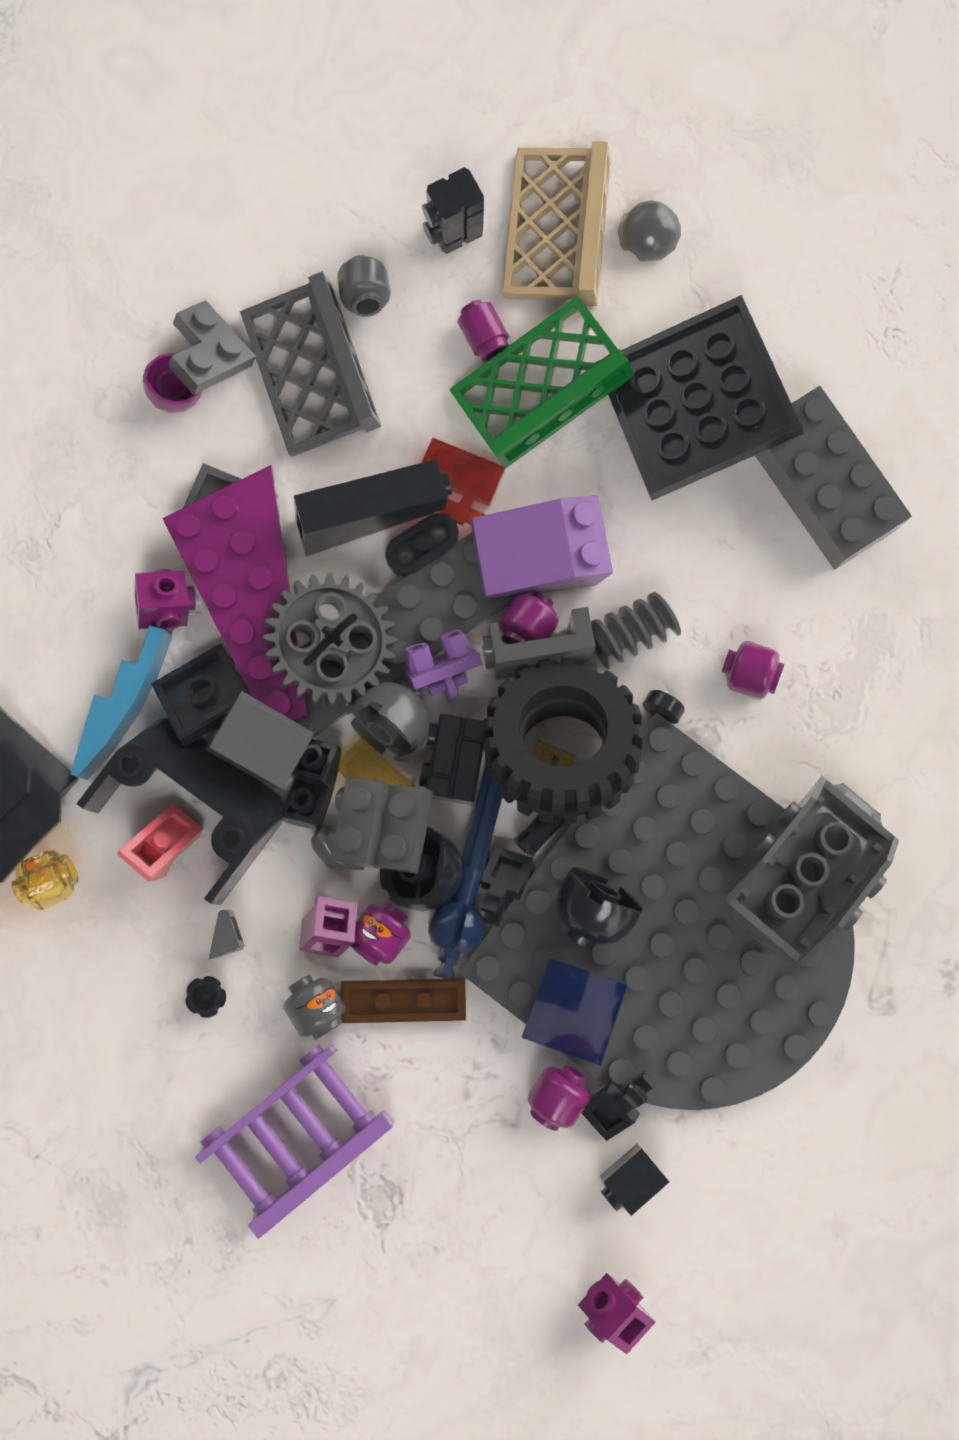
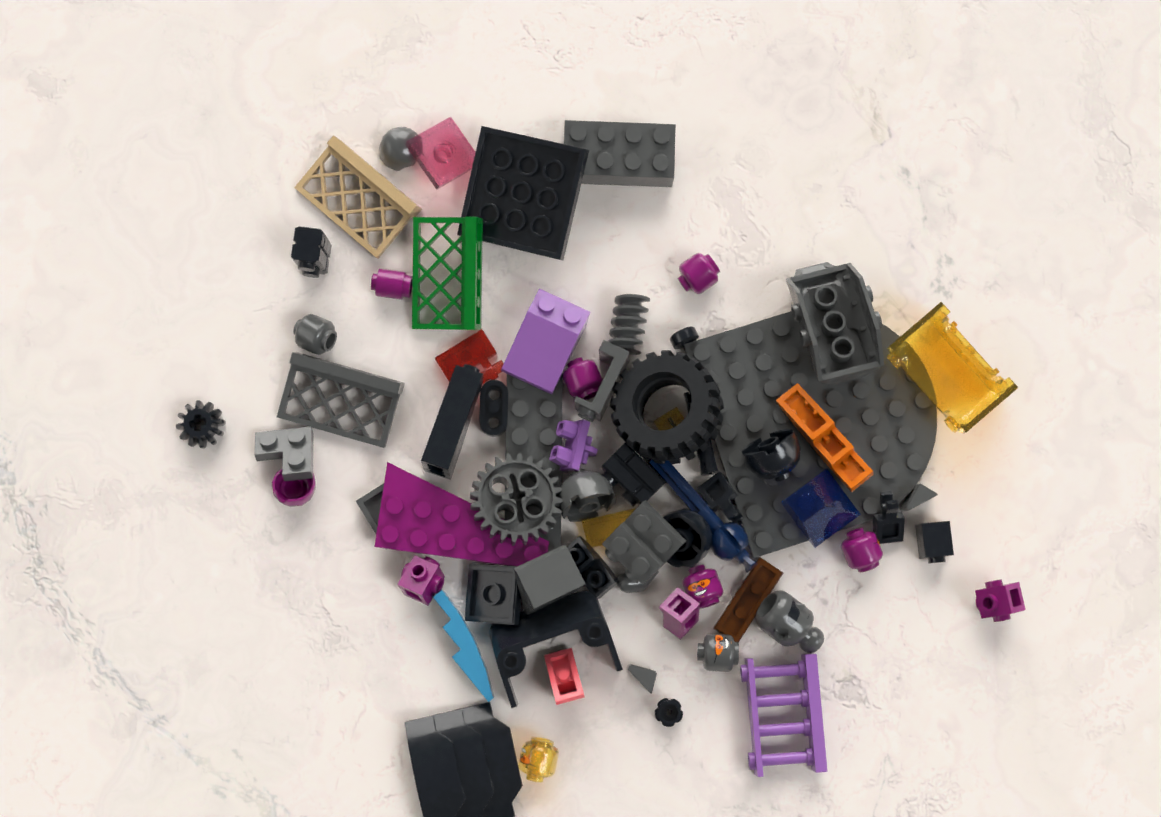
camera: 55 degrees left, 0 degrees up
(186, 232) = (194, 417): none -> black gear
(408, 1067) = (789, 622): none -> dark grey piece
(662, 957) = (824, 437): none -> orange slope
(673, 1121) = (917, 496): none -> dark grey slope
(678, 277) = (442, 152): none -> clear pink plate
(856, 1054) = (949, 370): none -> clear yellow windscreen

